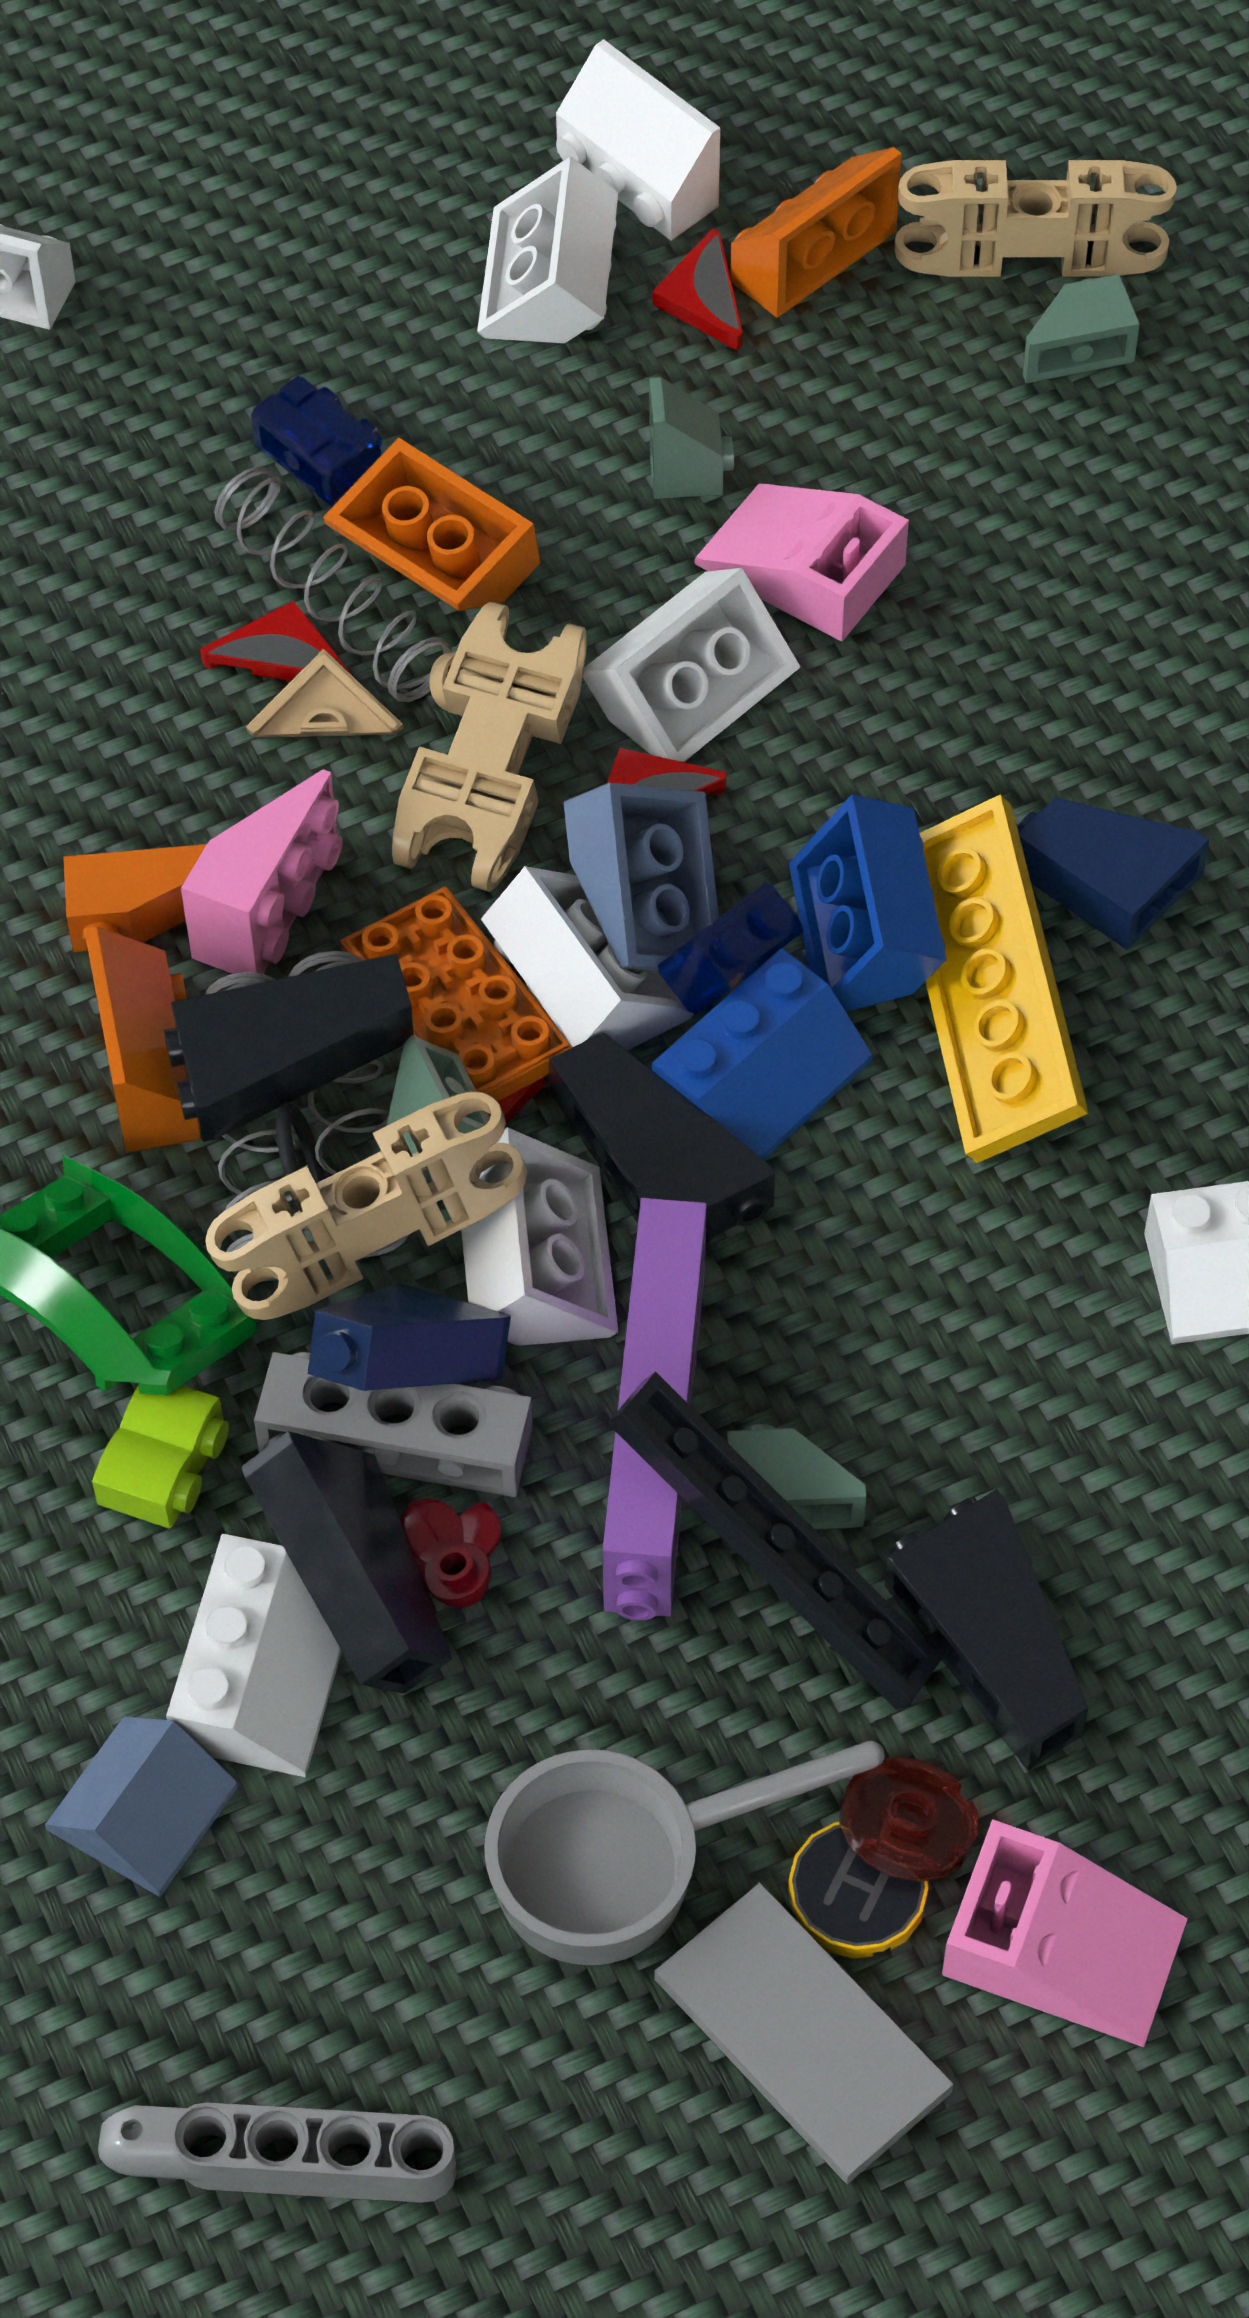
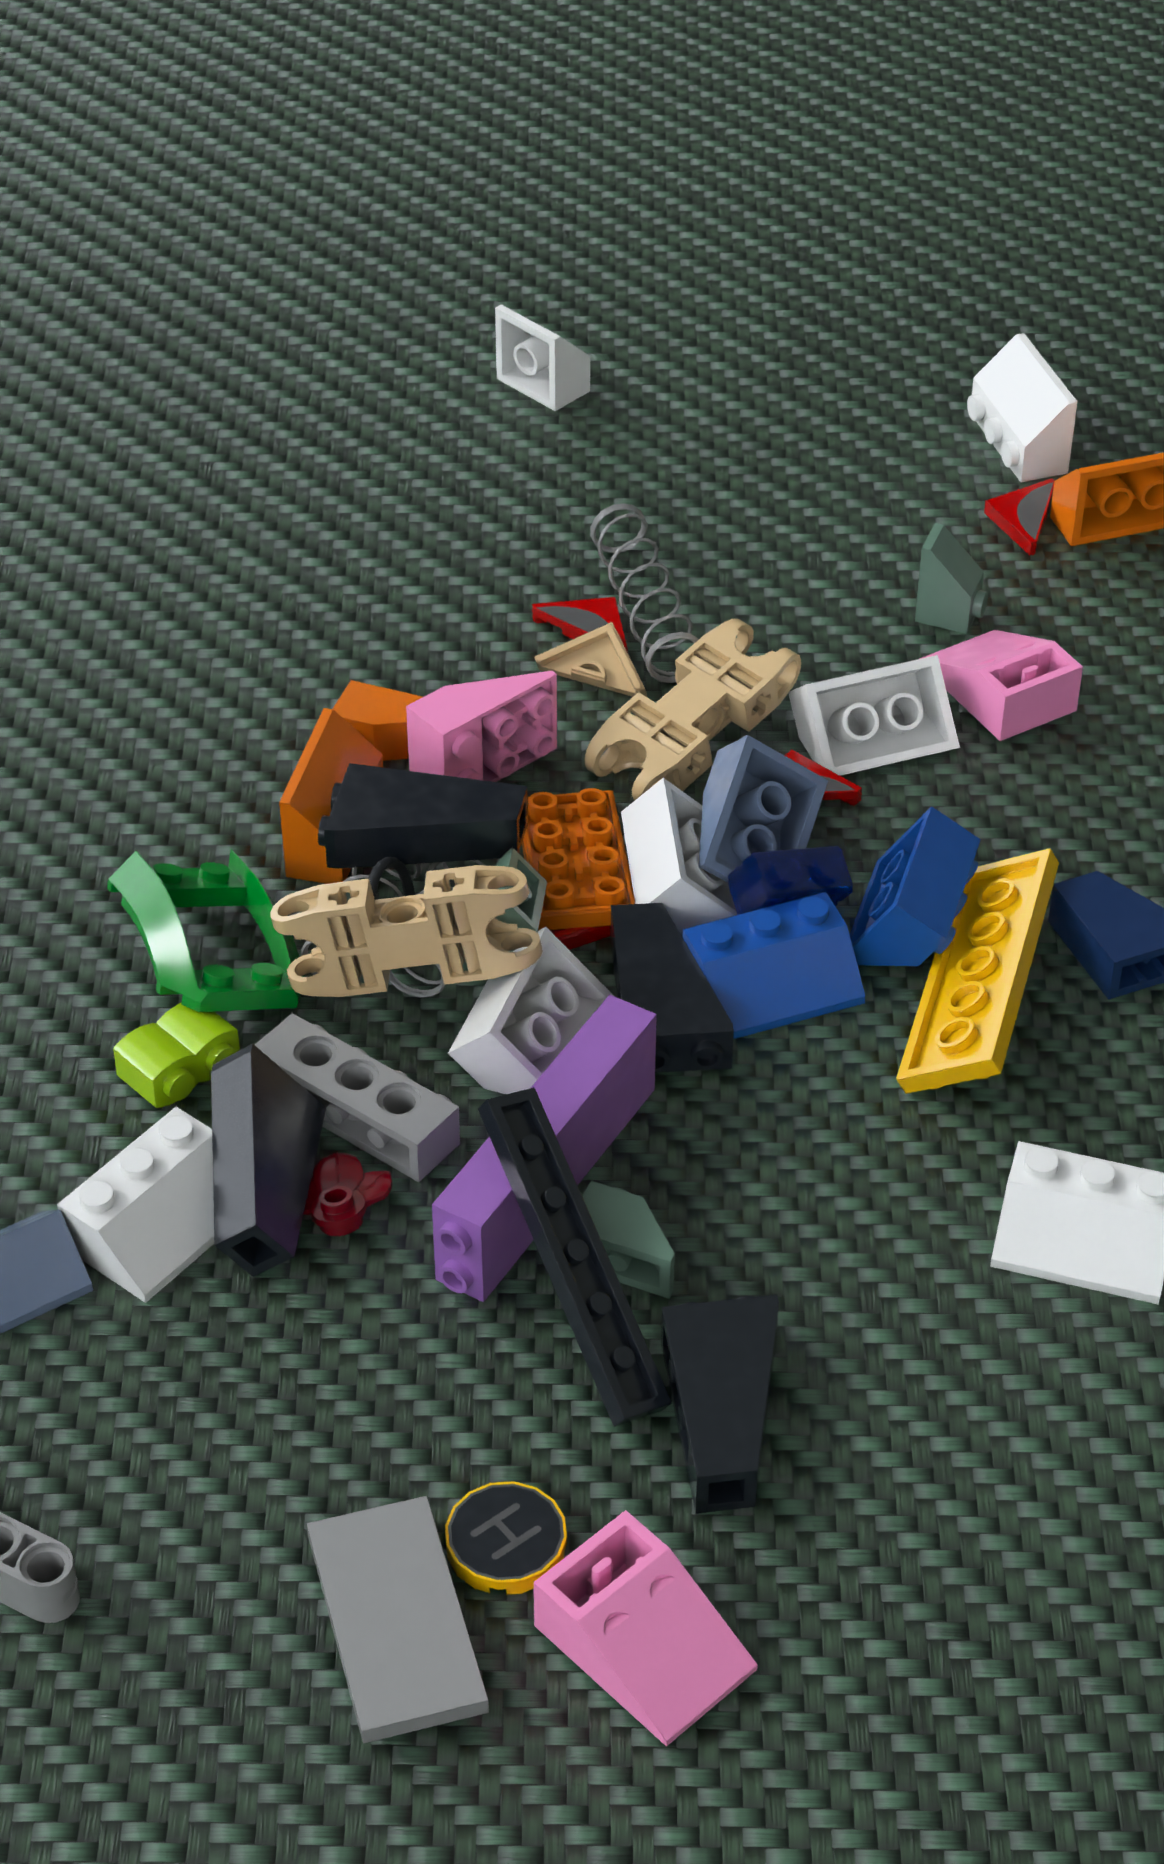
camera: 25 degrees right, 15 degrees down
(315, 438) = (691, 514): clear blue brick -> none
(407, 1340) = (387, 1034): dark blue slope -> none
(437, 529) = (738, 578): orange slope -> none
(549, 258) = (924, 461): white slope -> none
(603, 1848) = (316, 1422): light grey piece -> none
(908, 1819) = (568, 1496): clear red tile -> none

